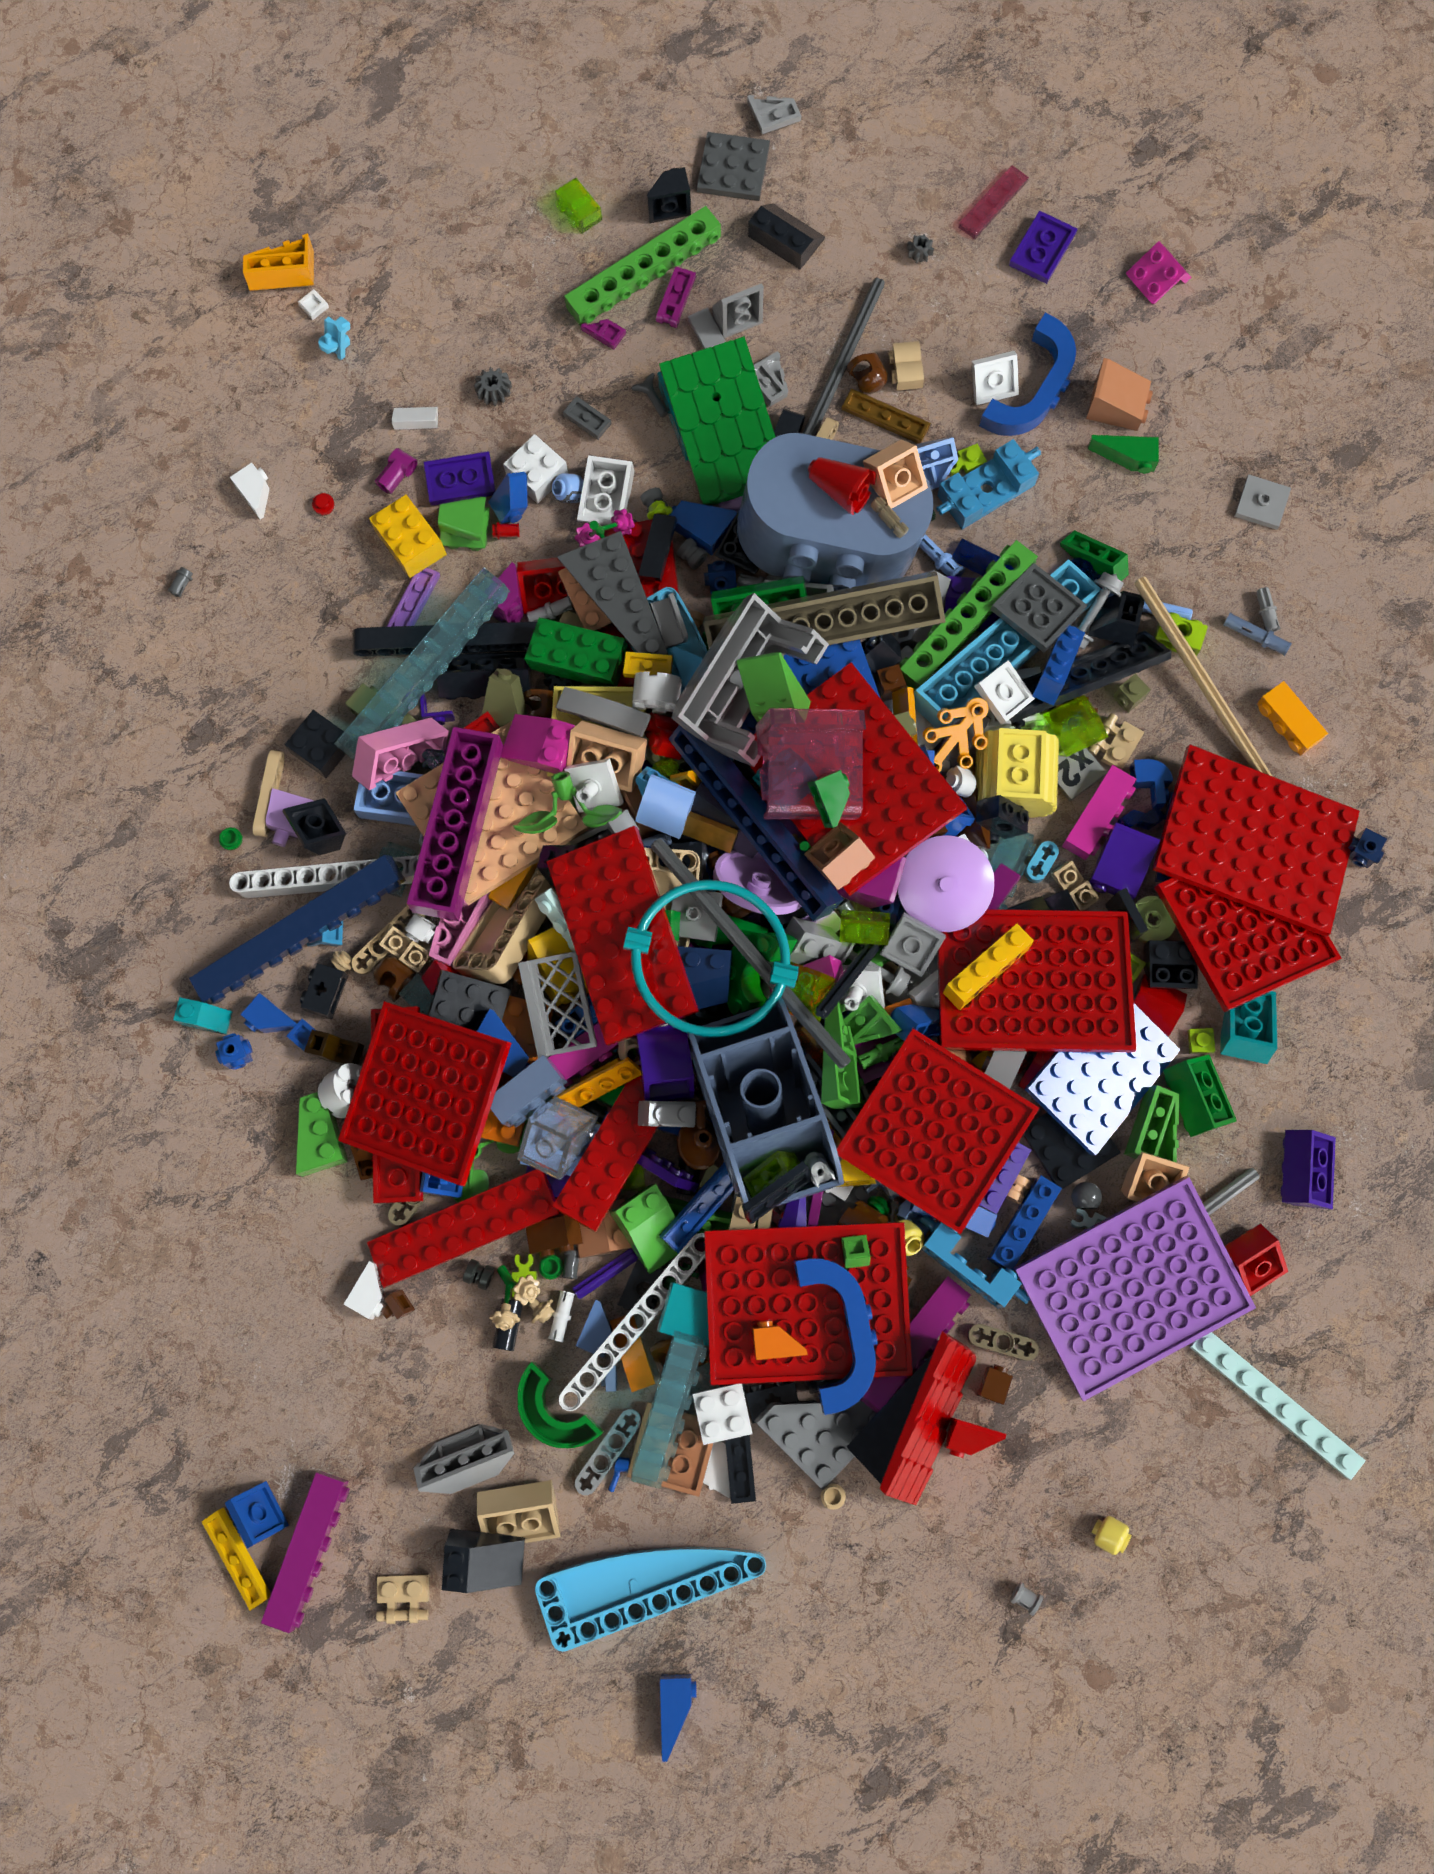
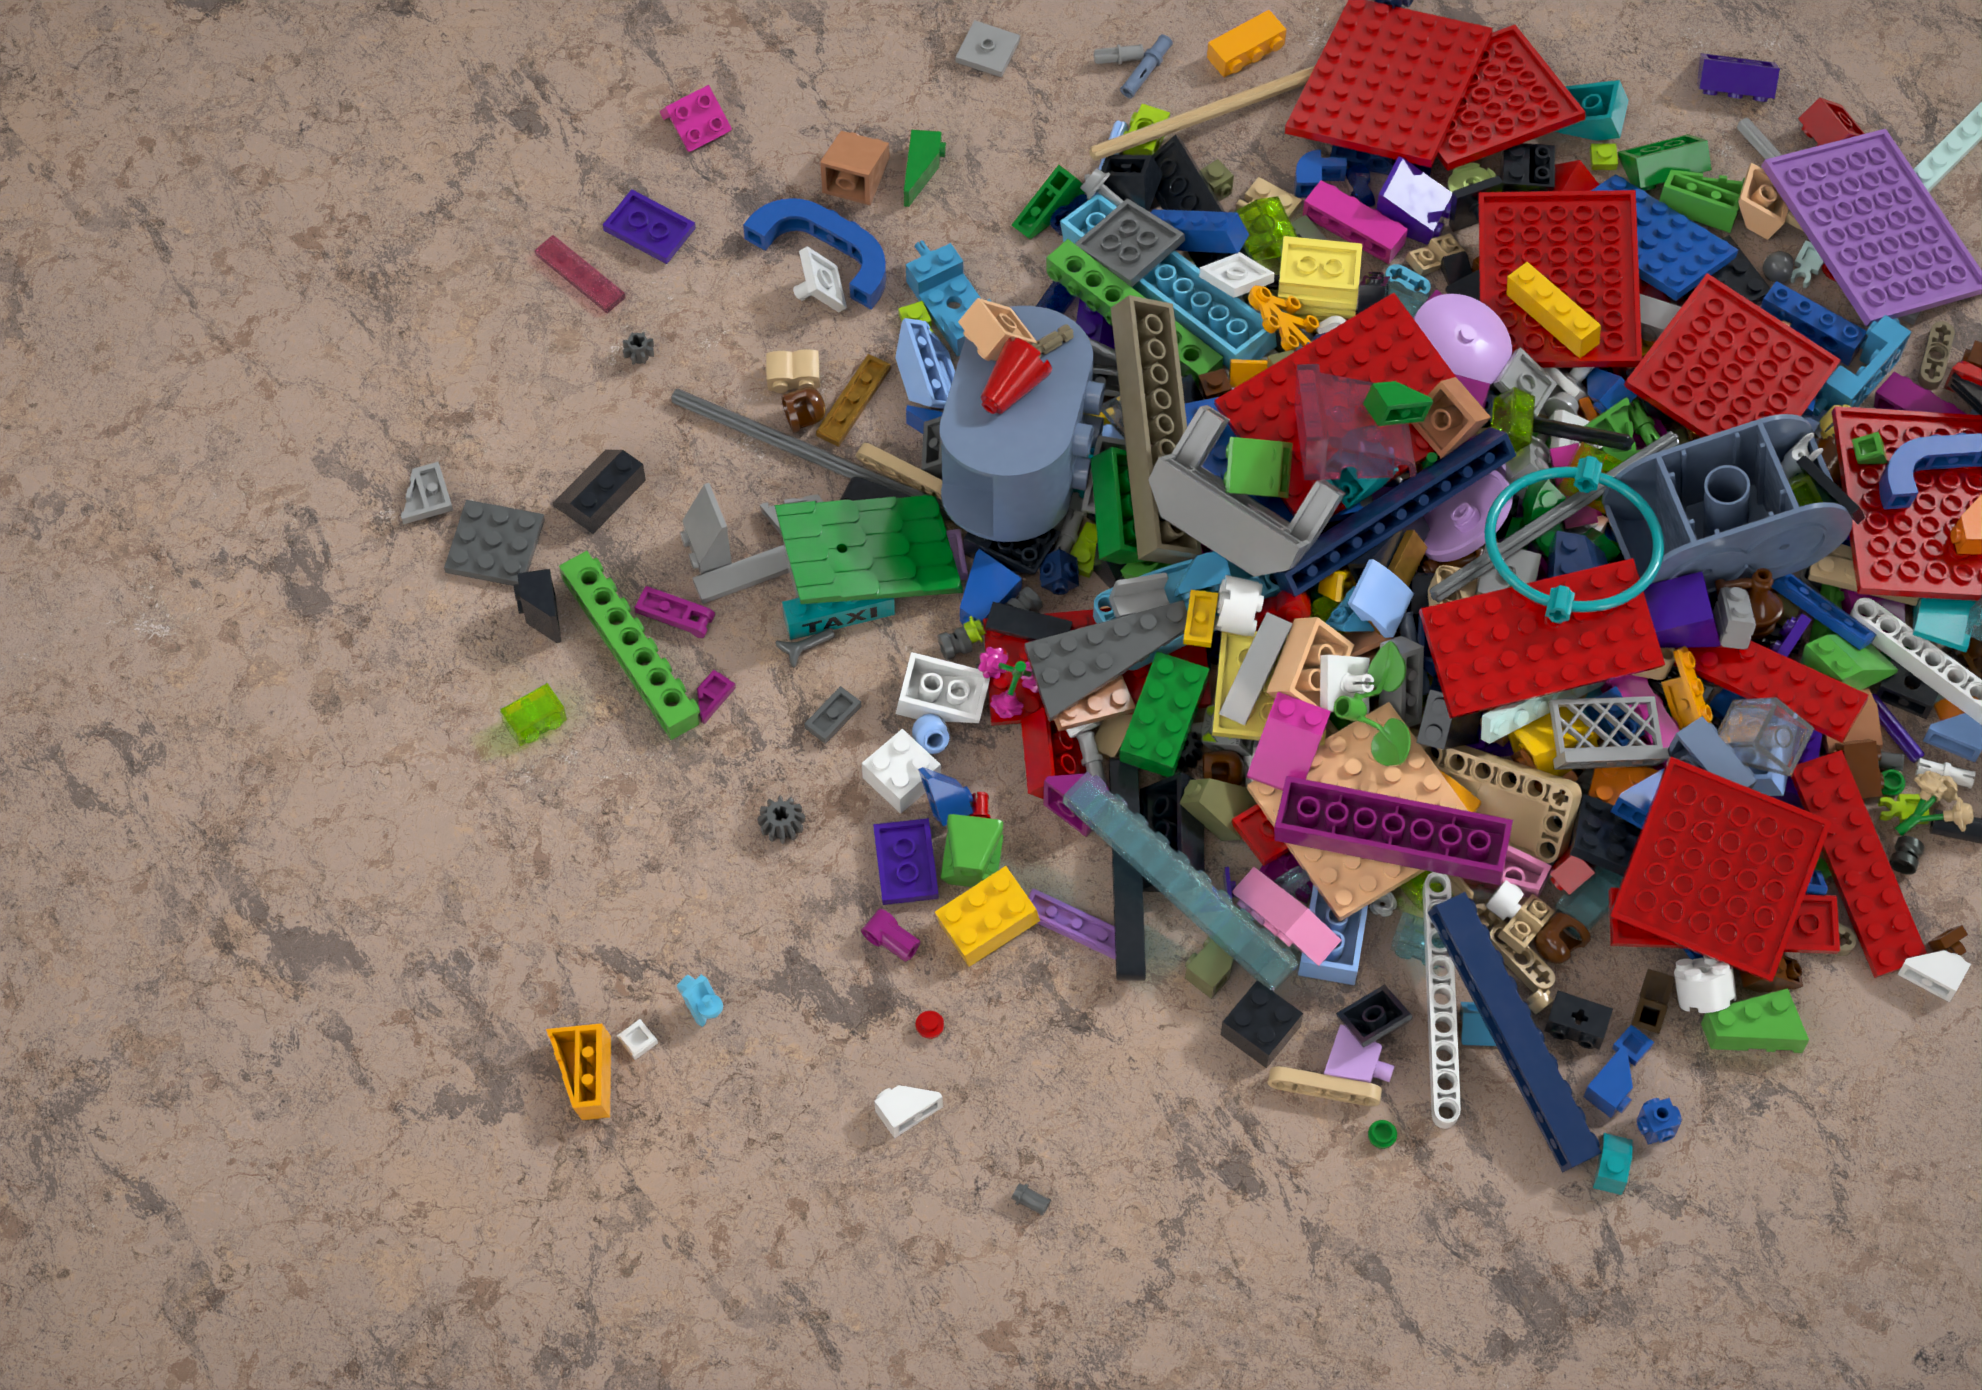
camera: 90 degrees left, 15 degrees down
(415, 418) = (813, 914): white slope -> none

